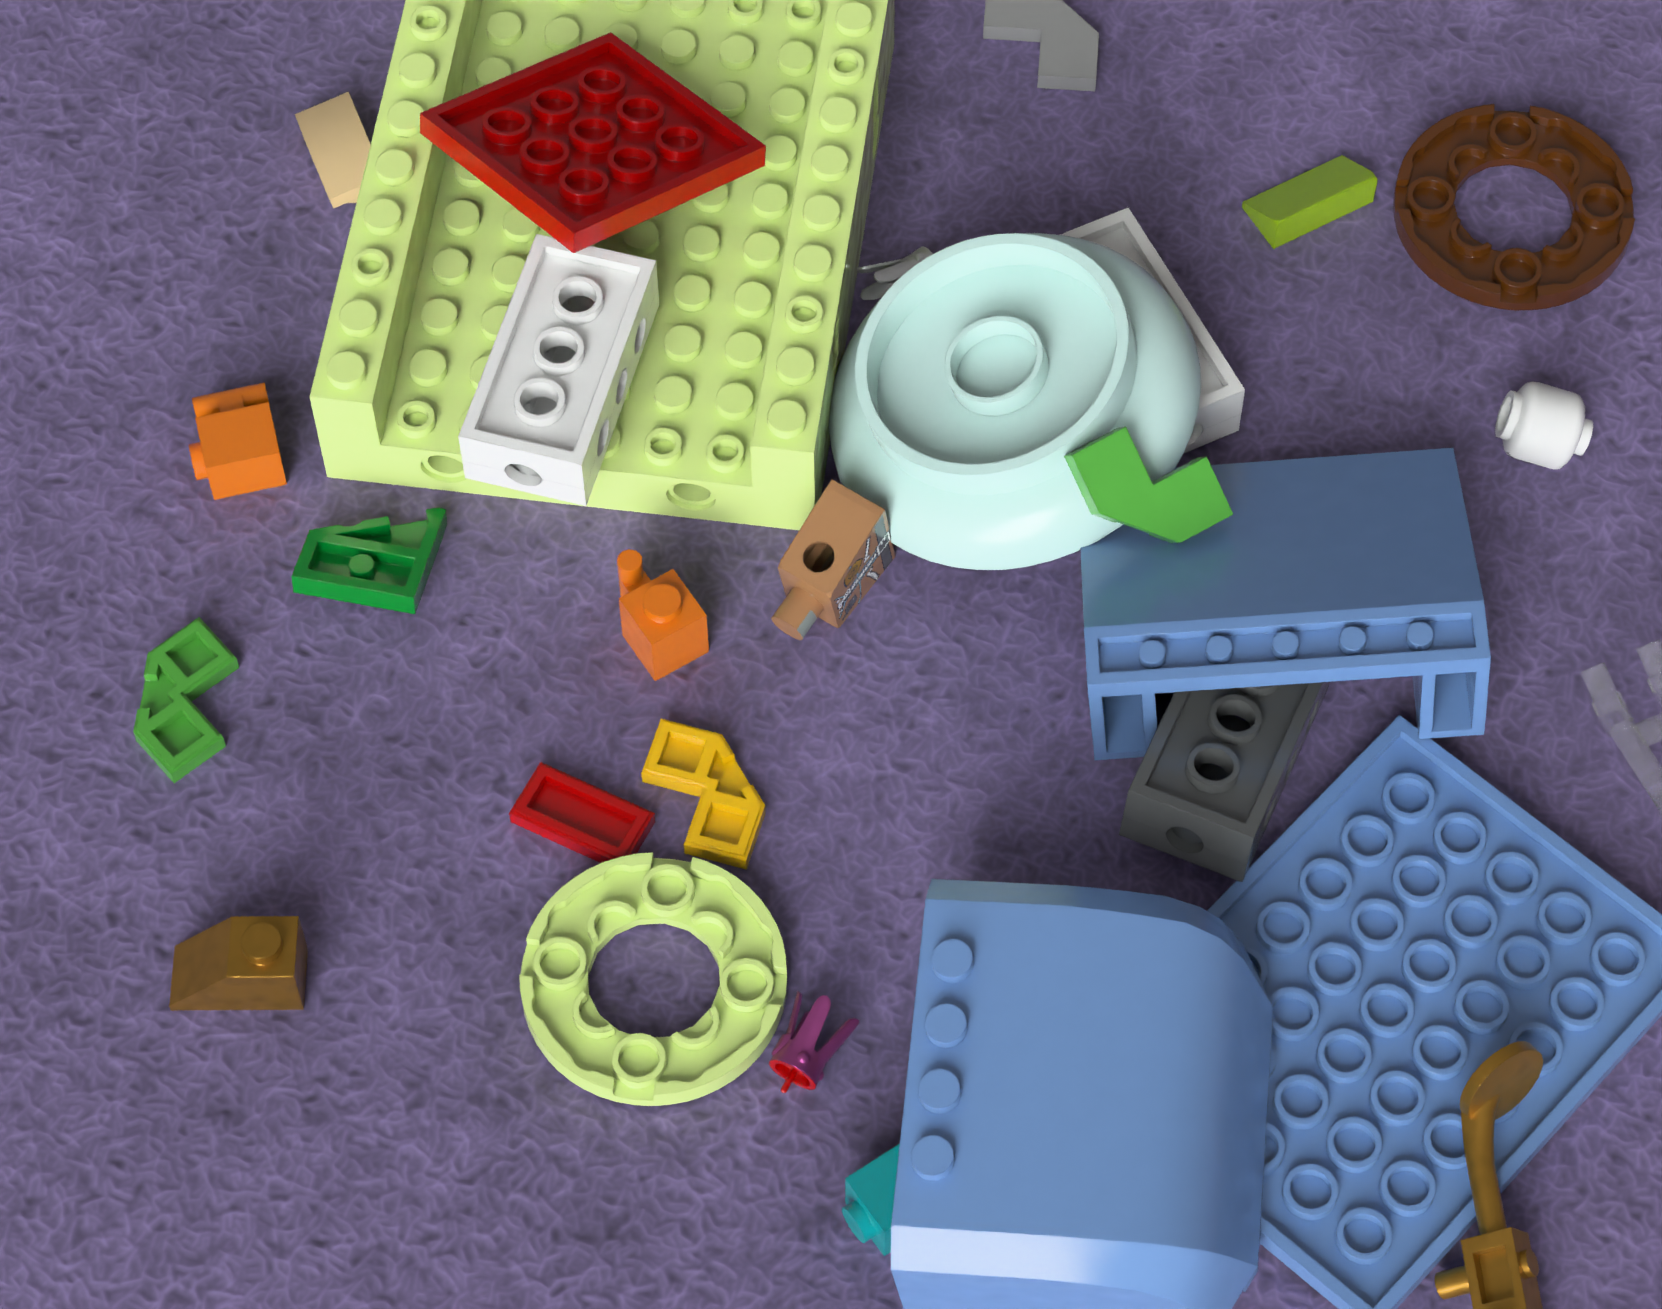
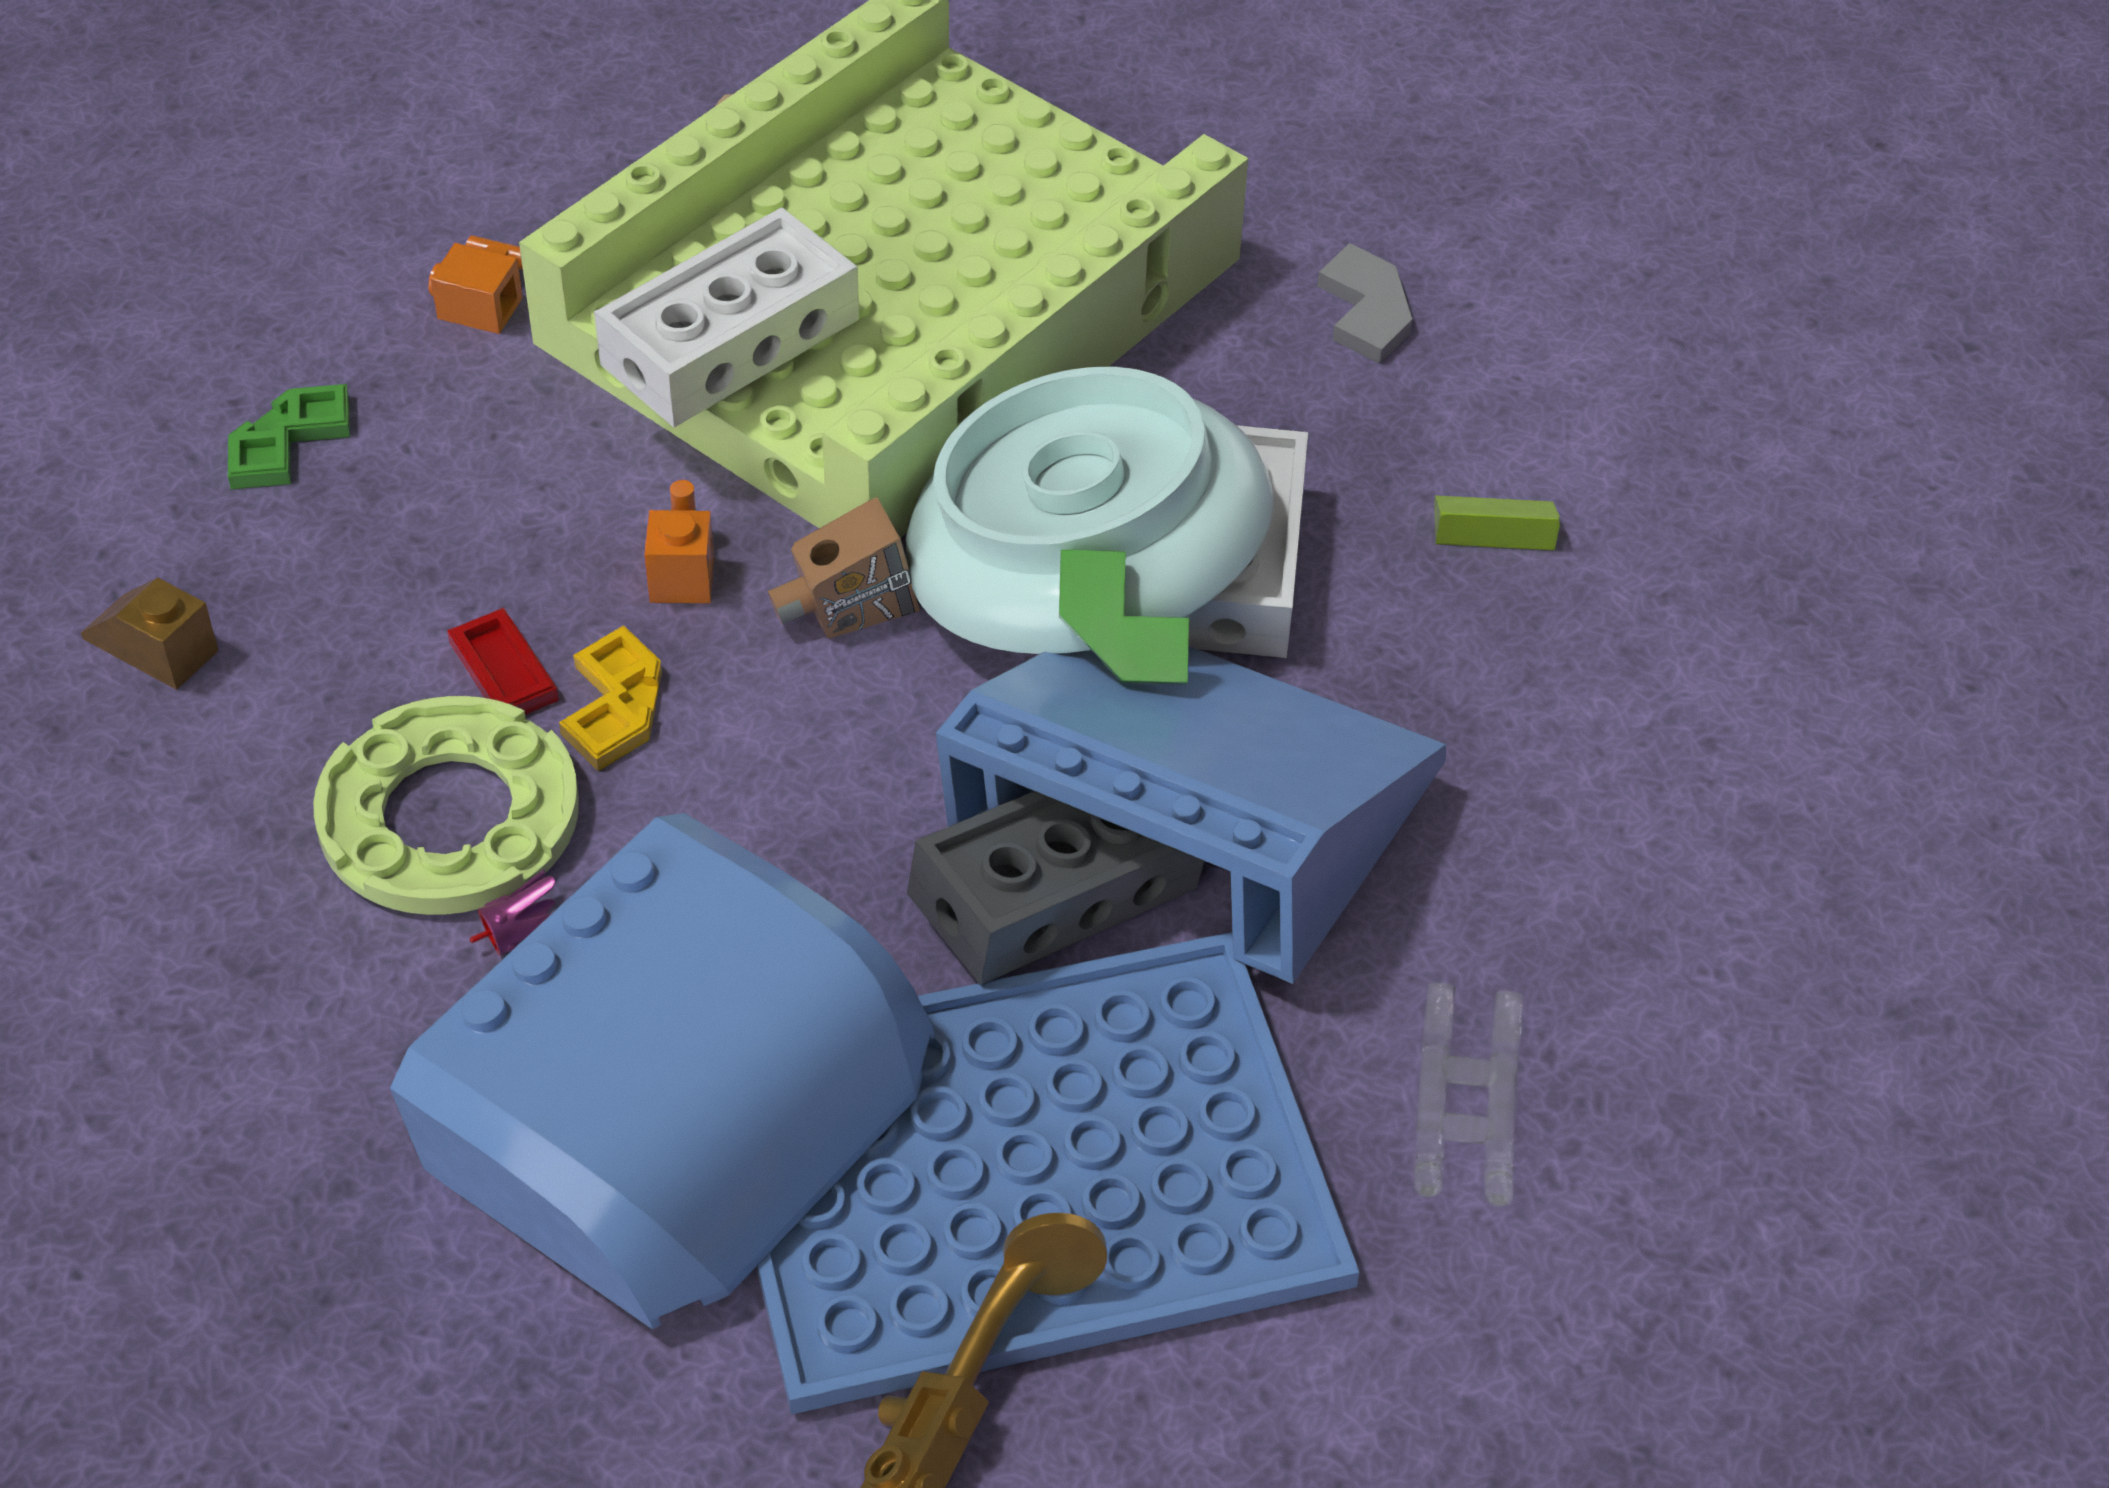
camera: 30 degrees right, 10 degrees down
(371, 561) = (506, 410): green wing -> none
(592, 141) = (890, 174): red plate -> none
(1536, 140) = (1642, 540): reddish brown plate -> none
(1543, 425) = (1557, 778): white head -> none

